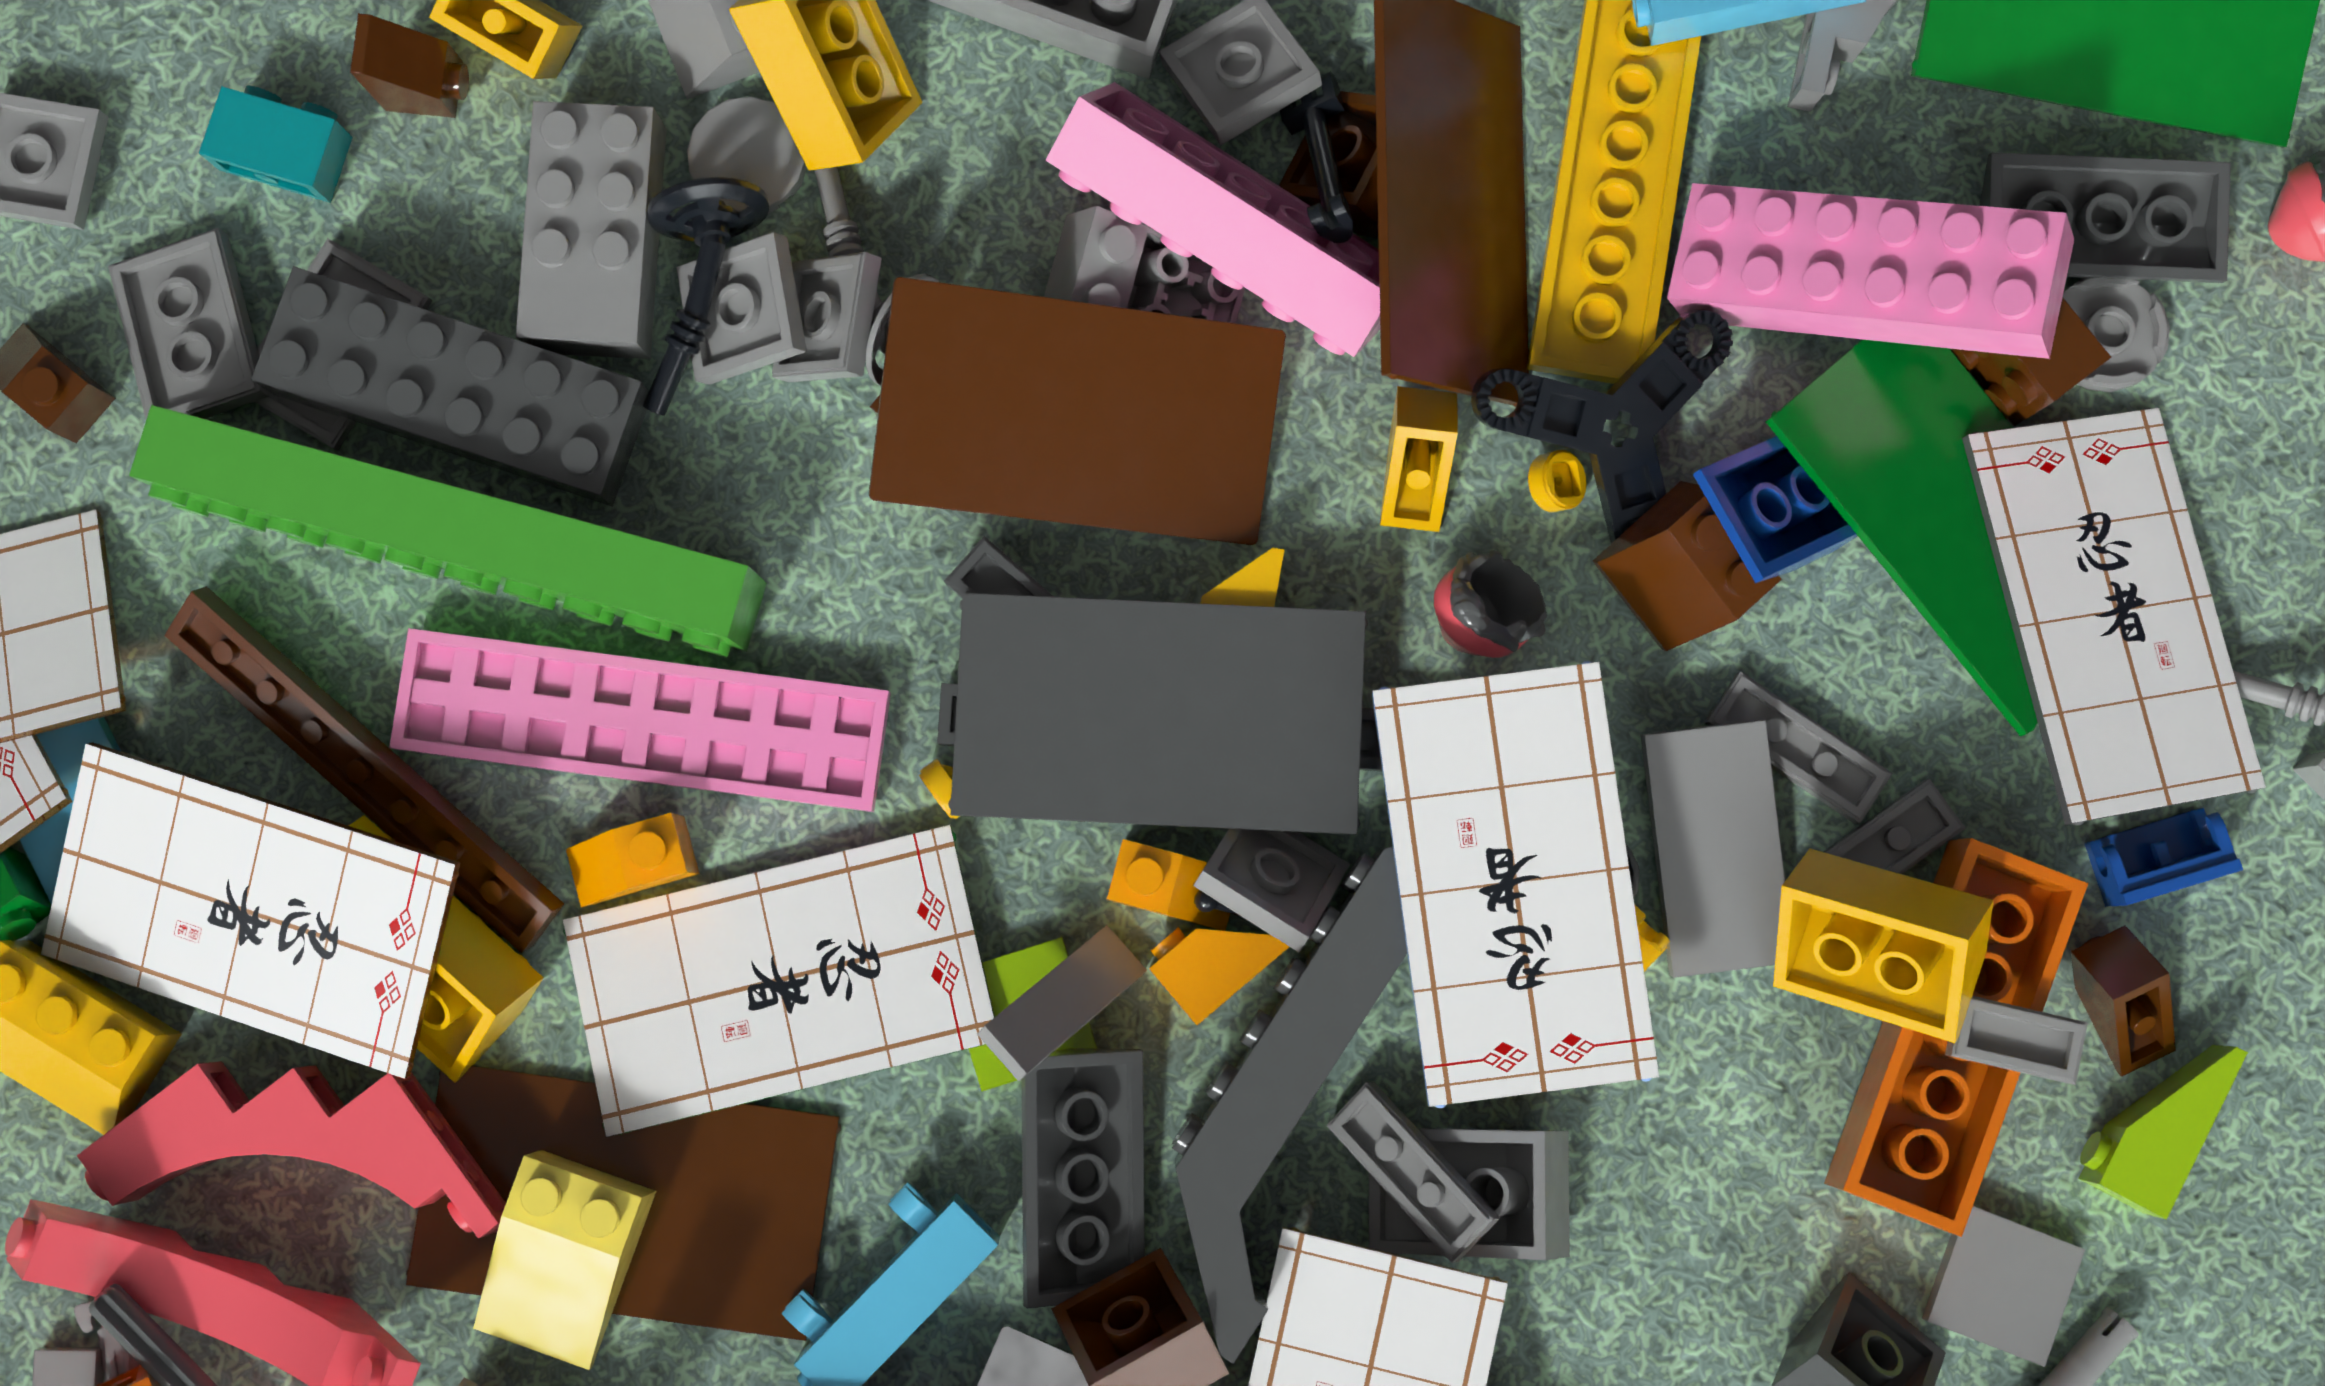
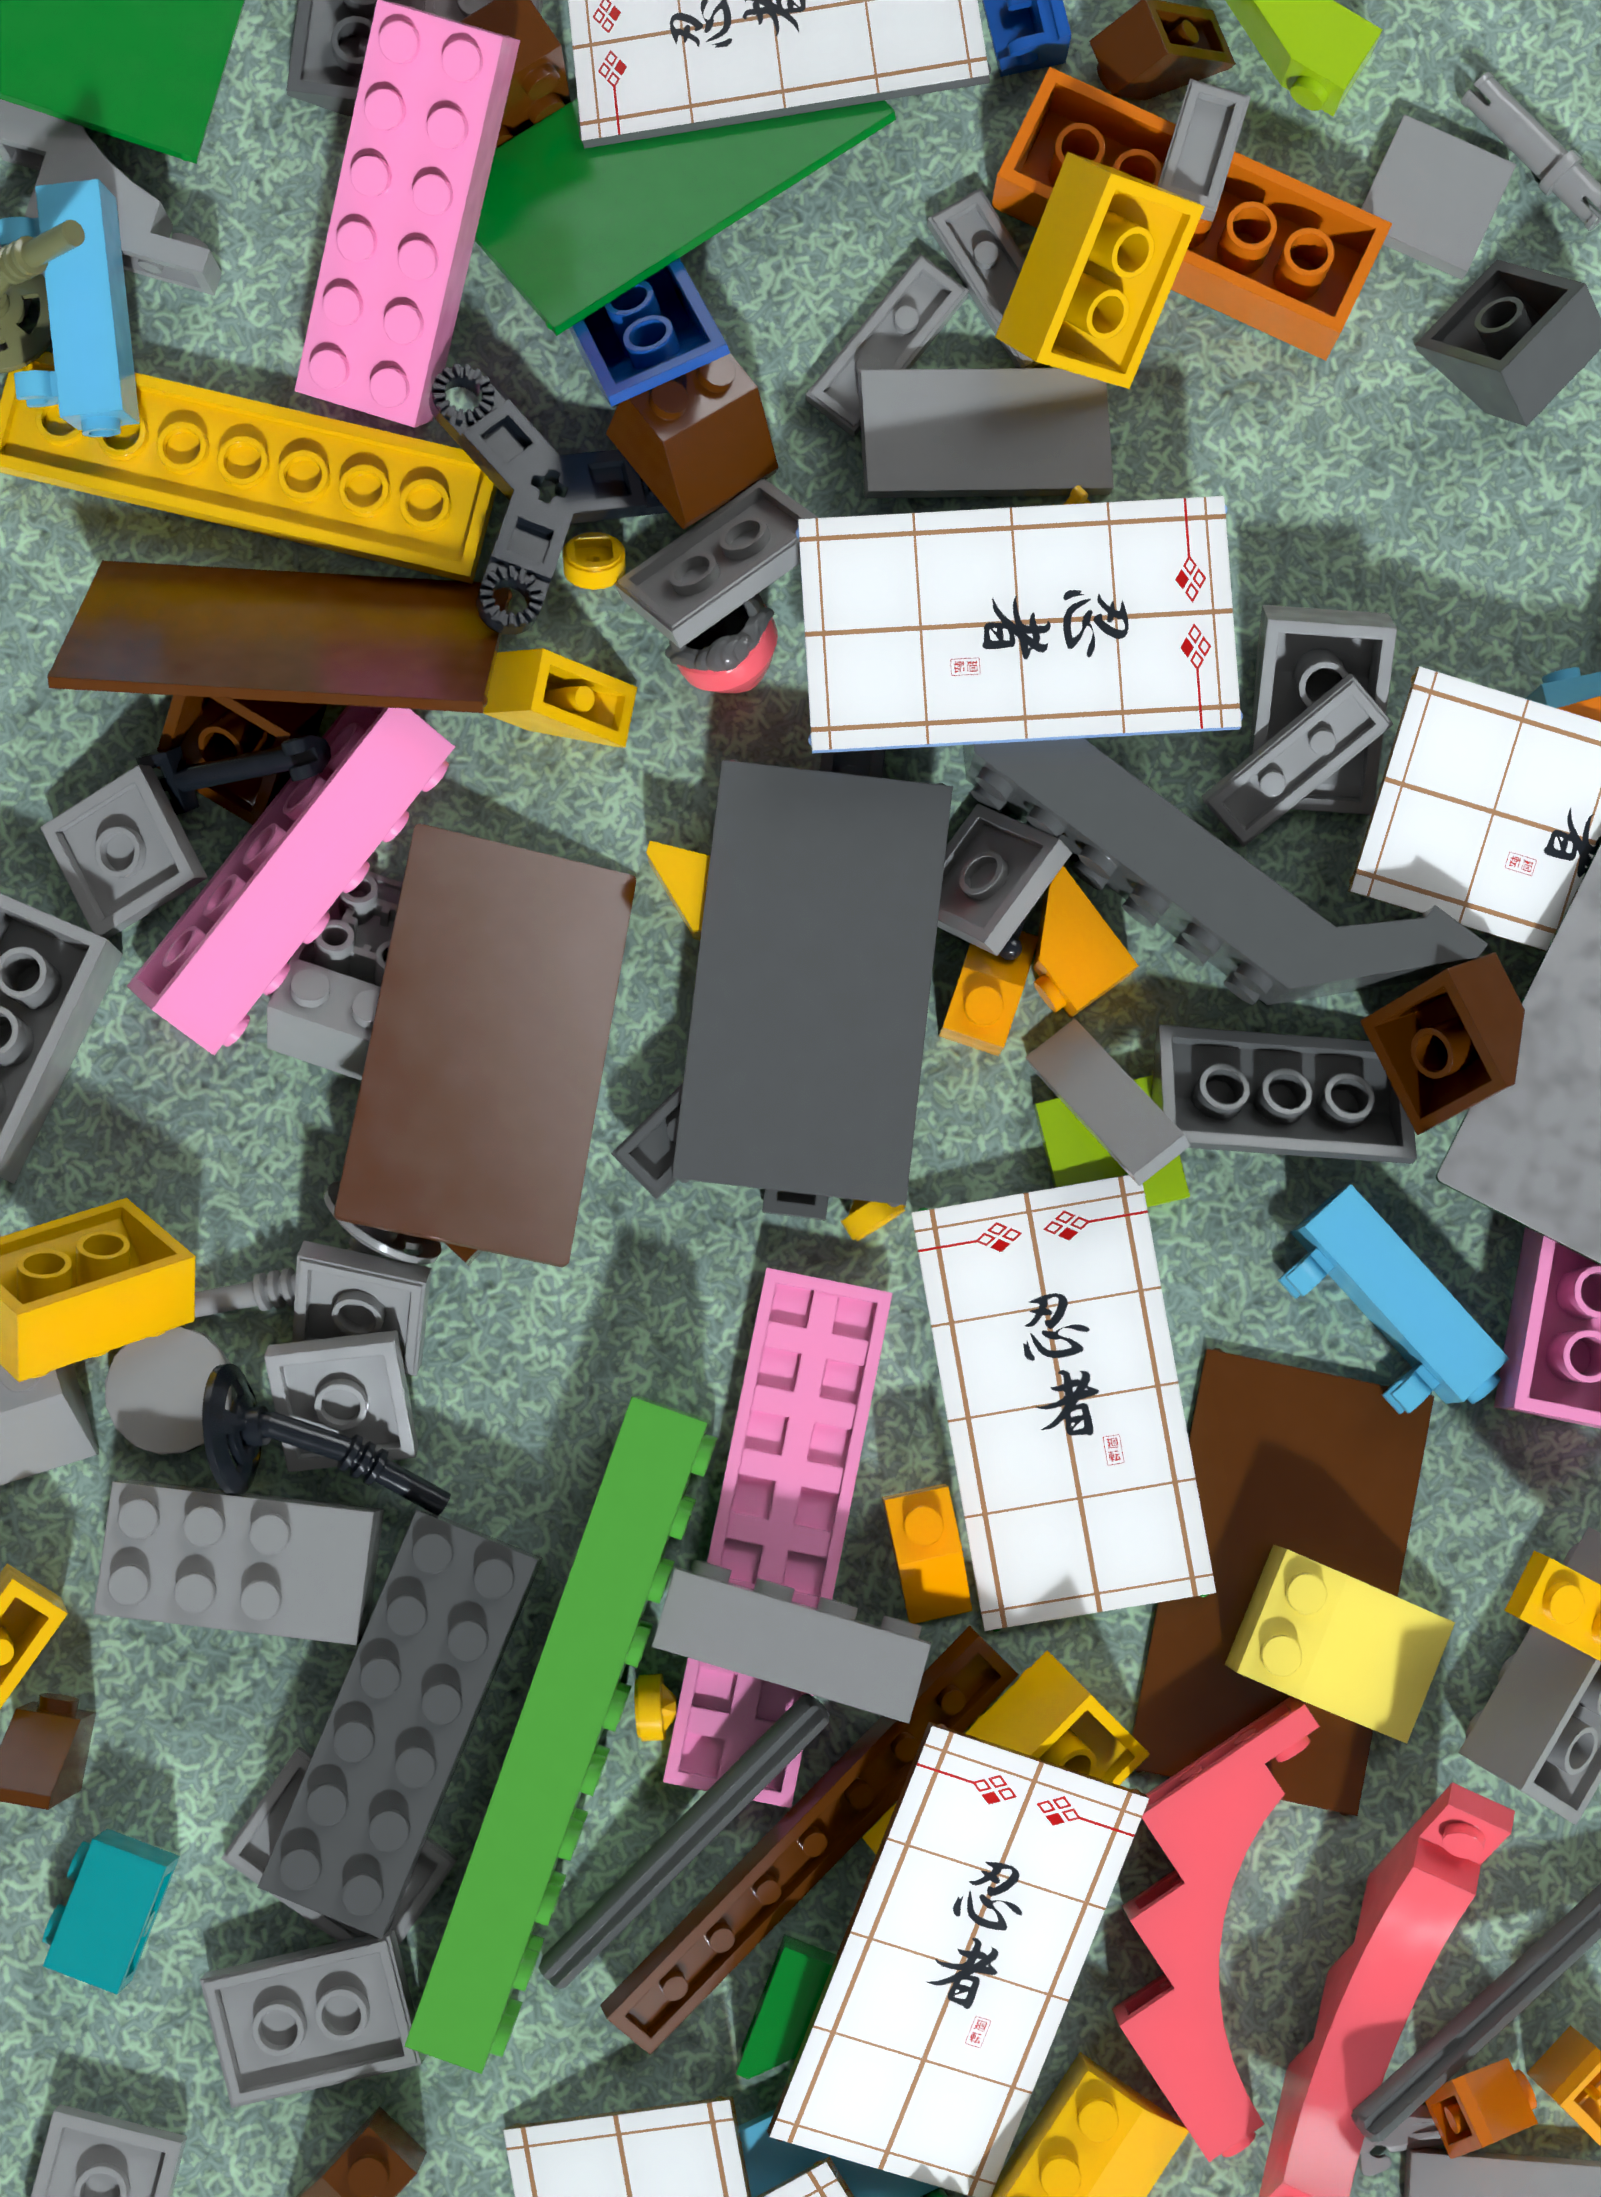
camera: 90 degrees left, 0 degrees up
(210, 754) = (784, 2007): none -> green slope
(356, 652) = (684, 1841): none -> dark grey axle
(476, 614) = (653, 1707): none -> yellow tile
(534, 736) = (793, 1643): none -> light grey brick
(1560, 595) = (717, 563): none -> light grey tile

